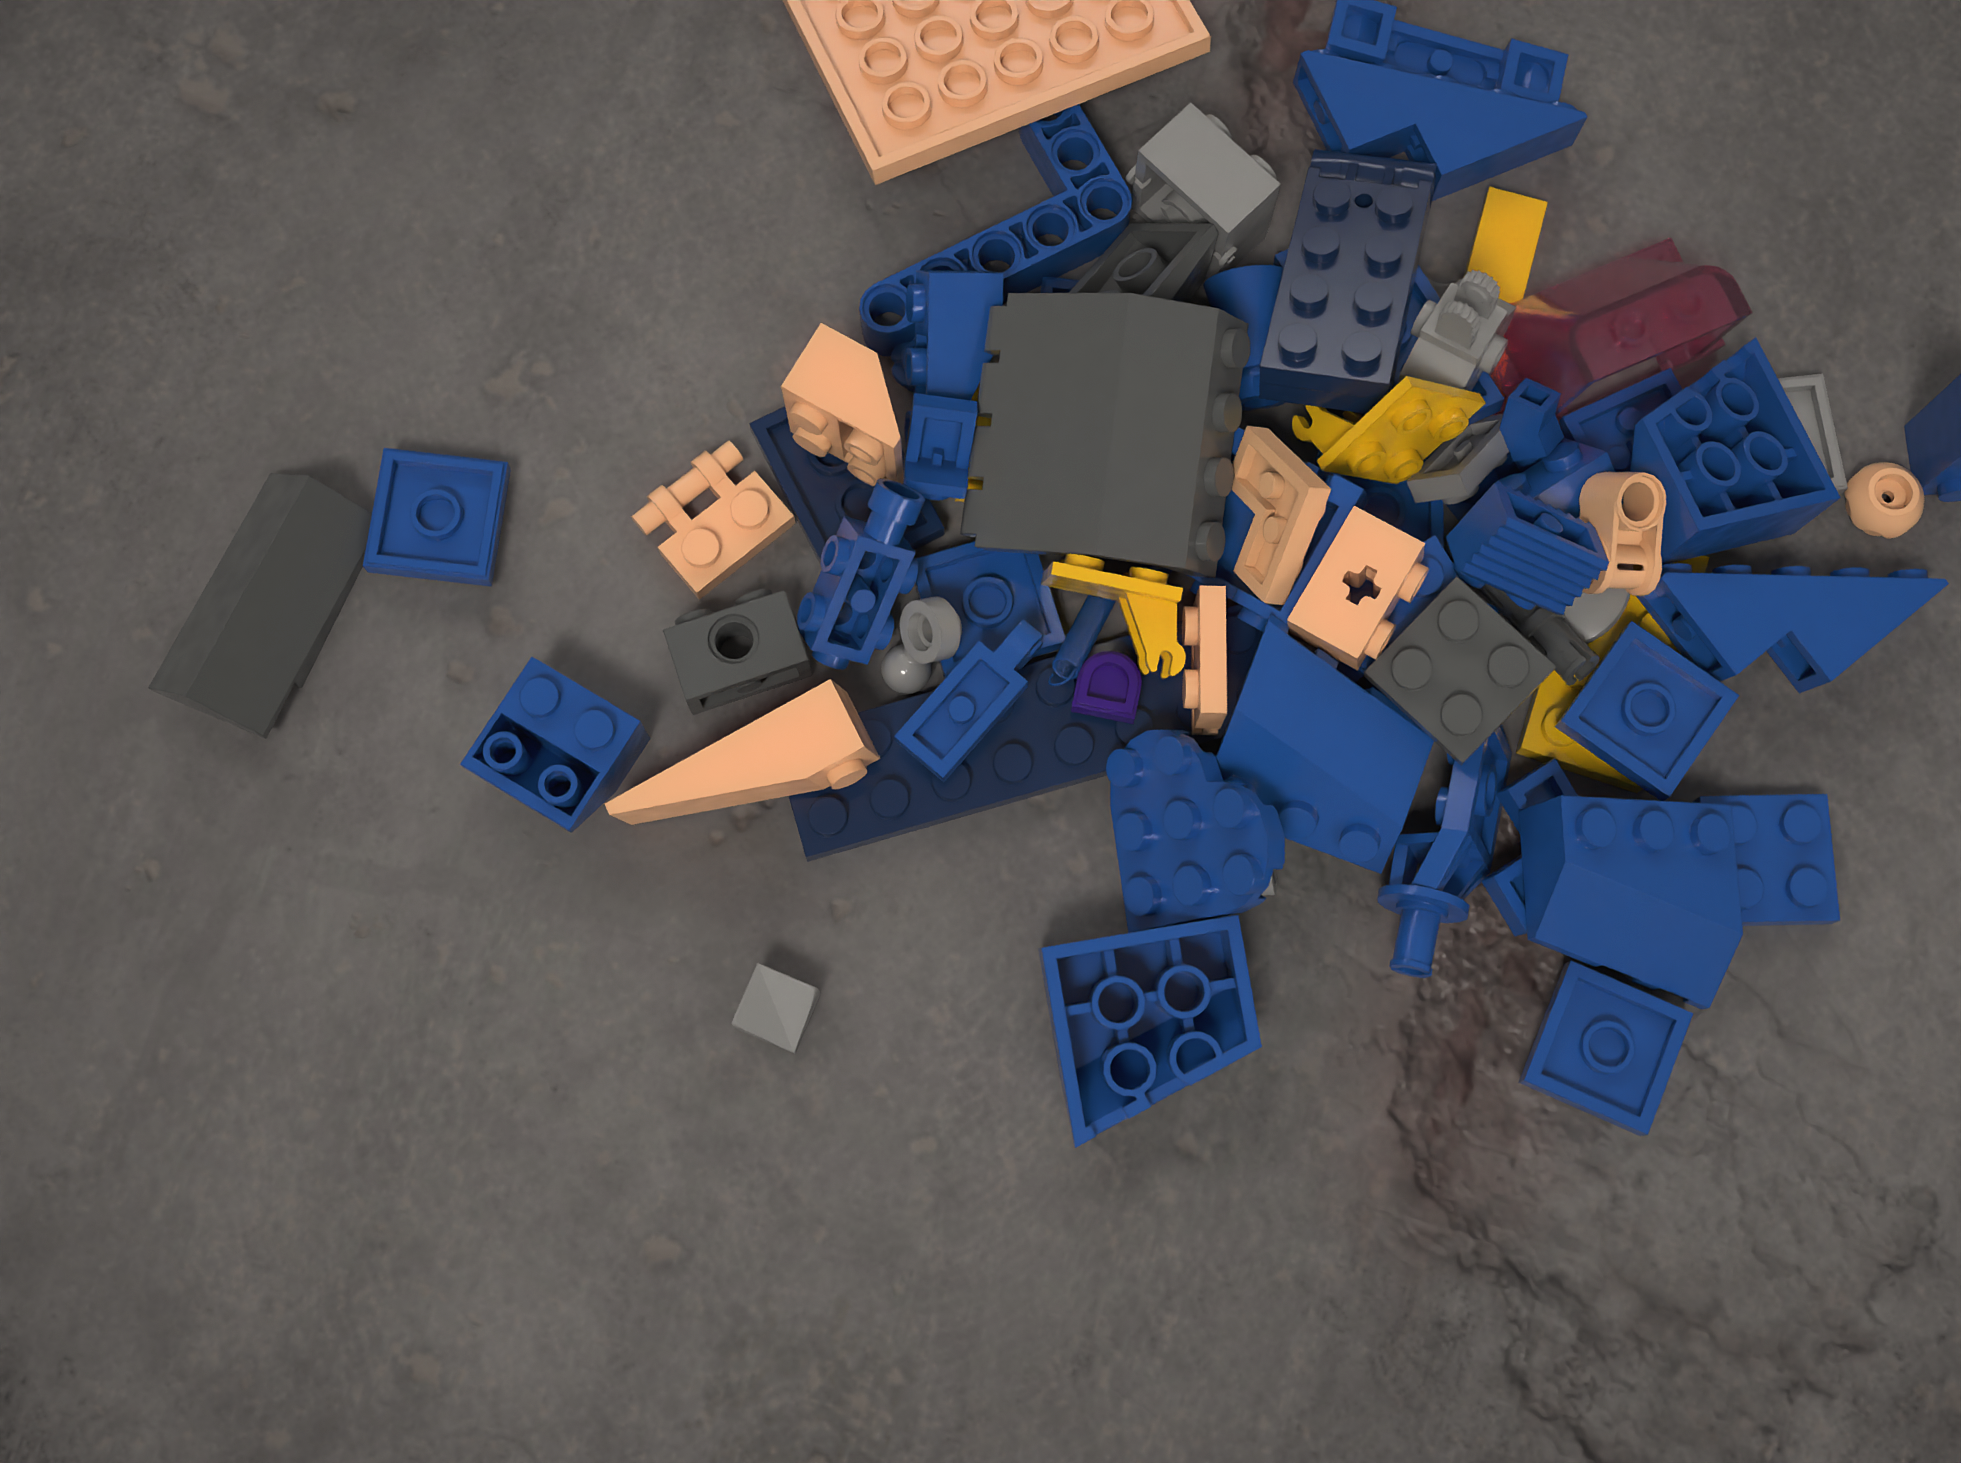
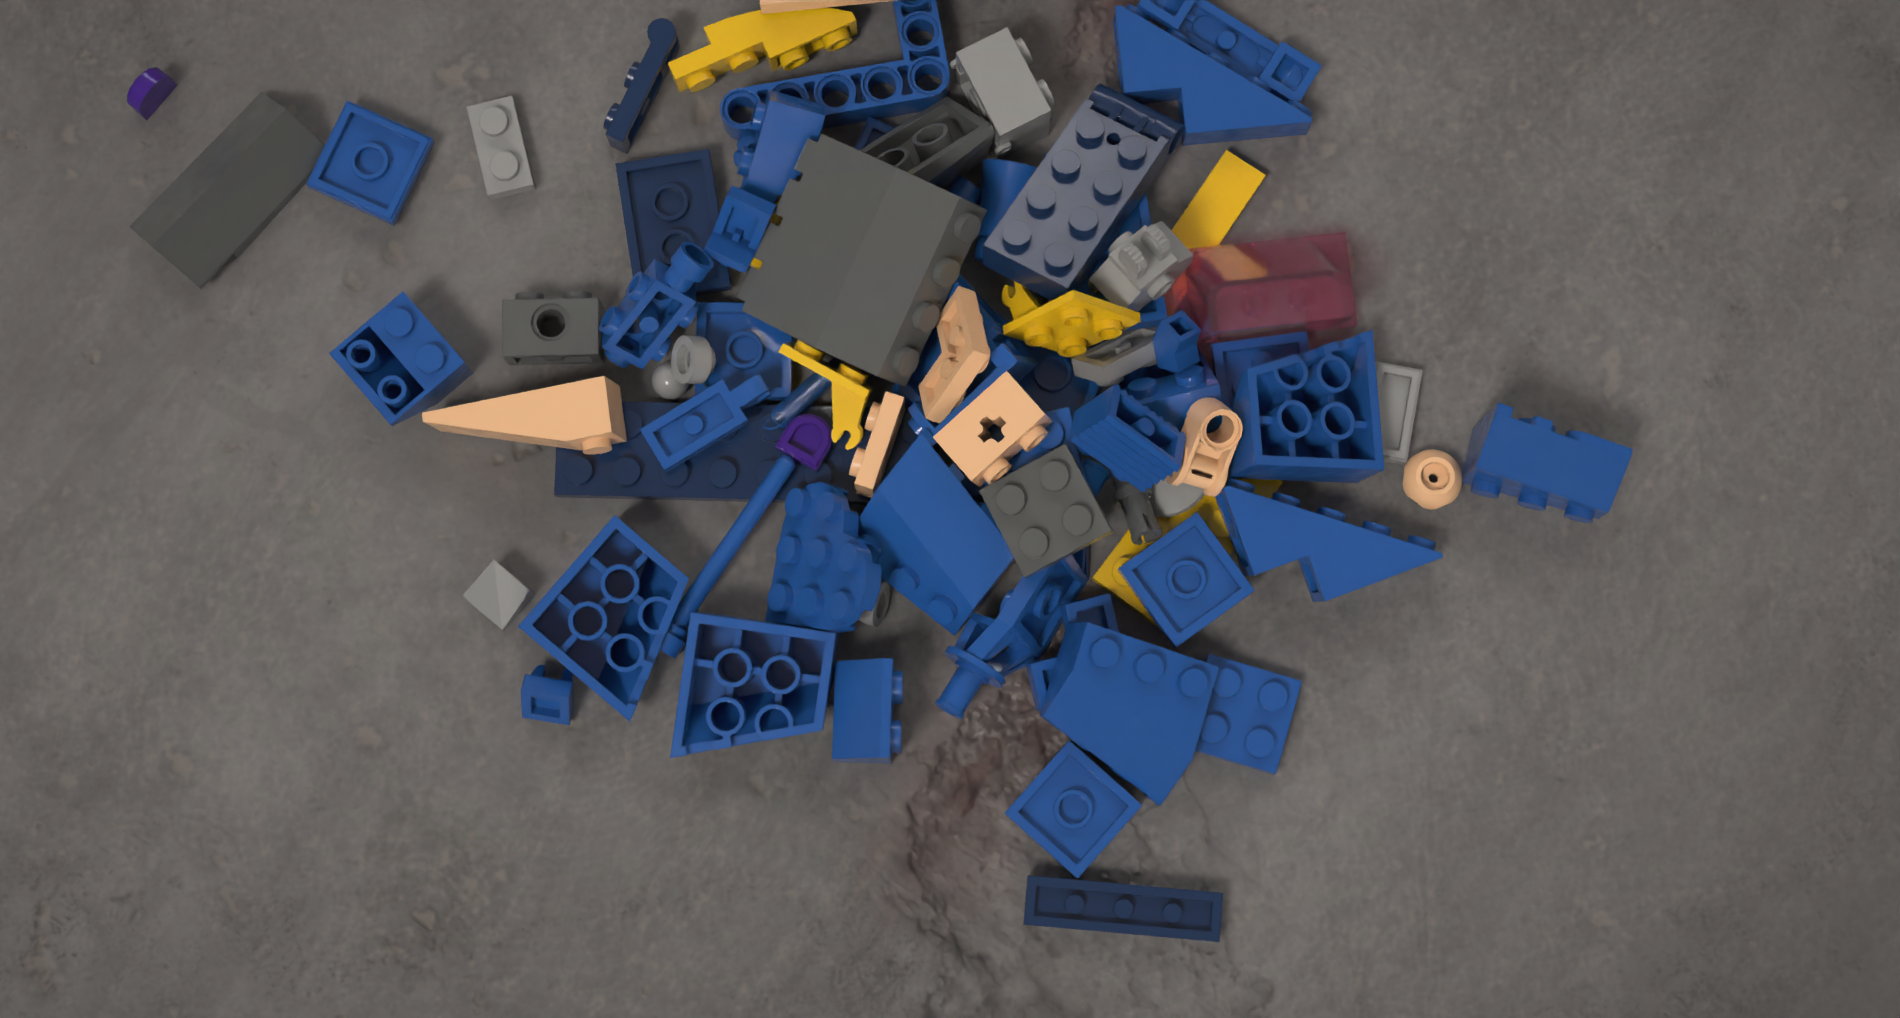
camera: 20 degrees right, 5 degrees up
(126, 513) = (150, 91): none -> dark purple tile
(597, 450) = (501, 147): none -> light grey plate
(726, 532) = (575, 238): light nougat plate -> none
(751, 319) = (642, 86): none -> dark blue plate
(843, 406) = (682, 175): light nougat slope -> none
(884, 1121) = (547, 697): none -> blue tile
(899, 213) = (780, 36): none -> yellow slope
(933, 986) = (610, 614): none -> blue wedge
(1014, 984) = (725, 552): none -> blue piece
(1308, 1005) = (864, 711): none -> blue slope
(1716, 1155) = (1123, 908): none -> dark blue plate

